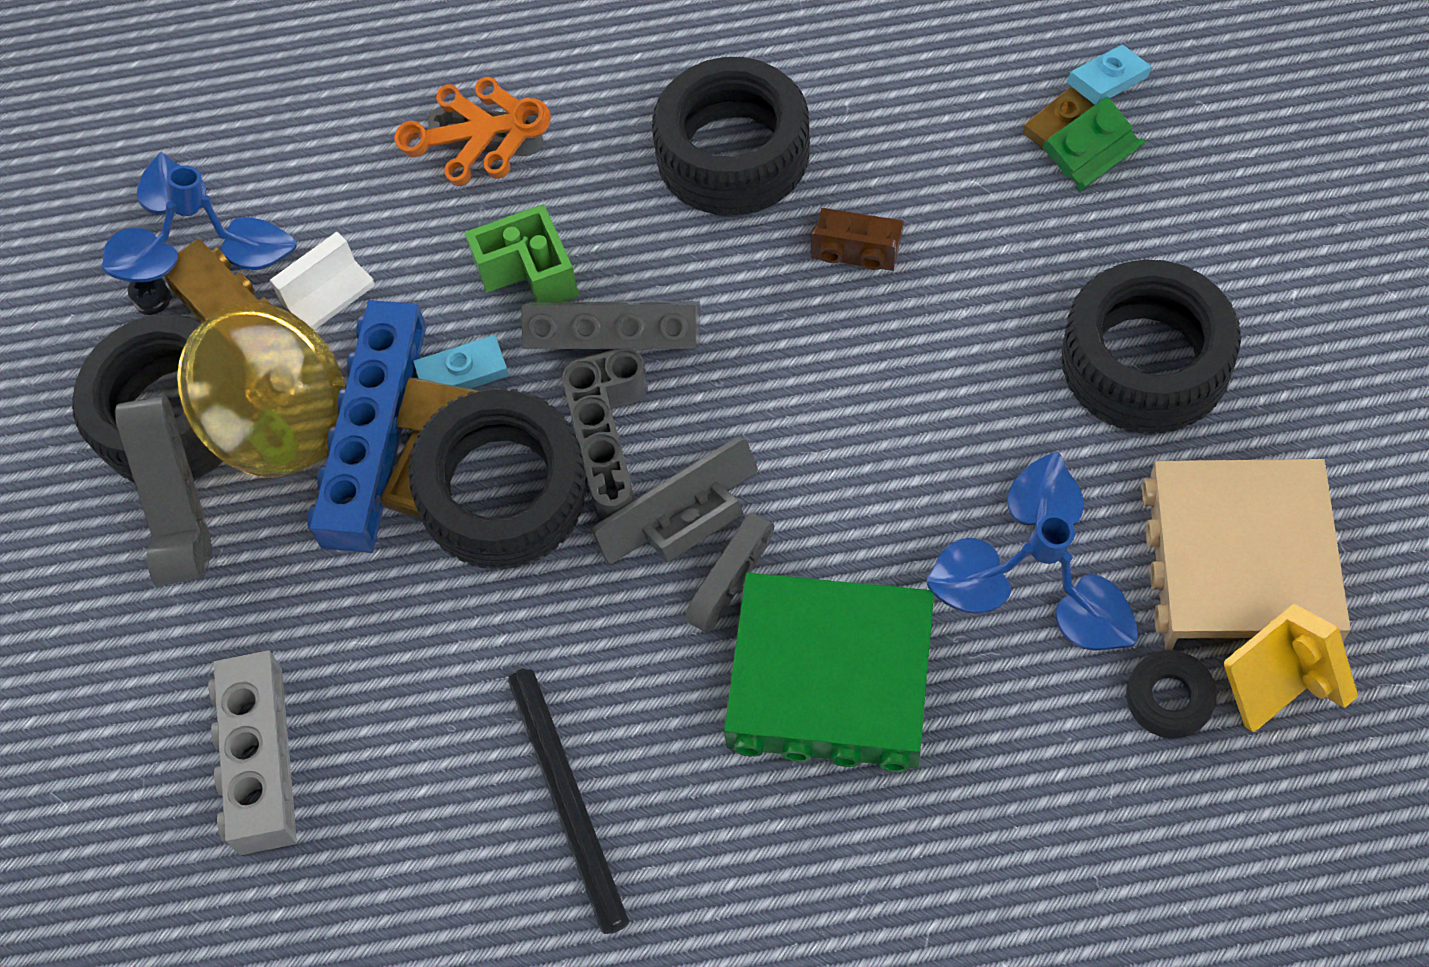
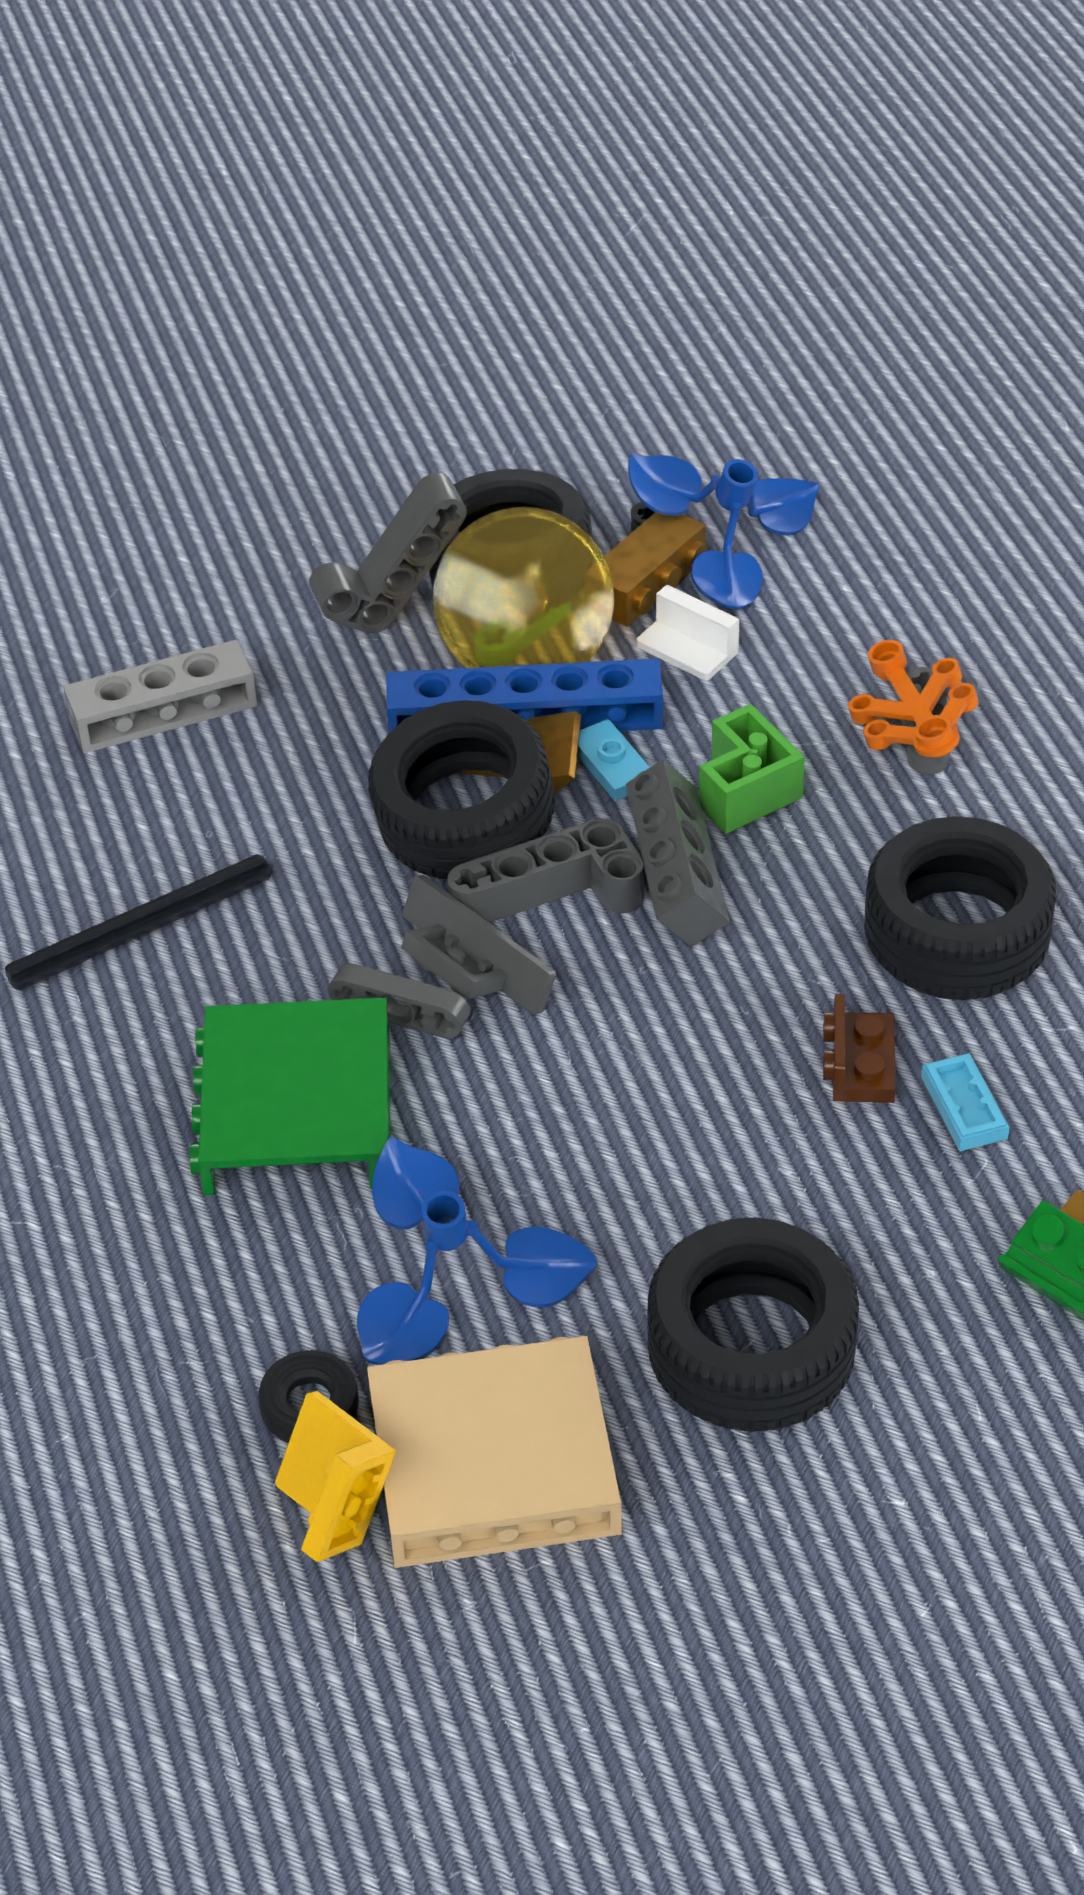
camera: 75 degrees right, 15 degrees down
(923, 178) = (965, 1102): none -> medium azure plate

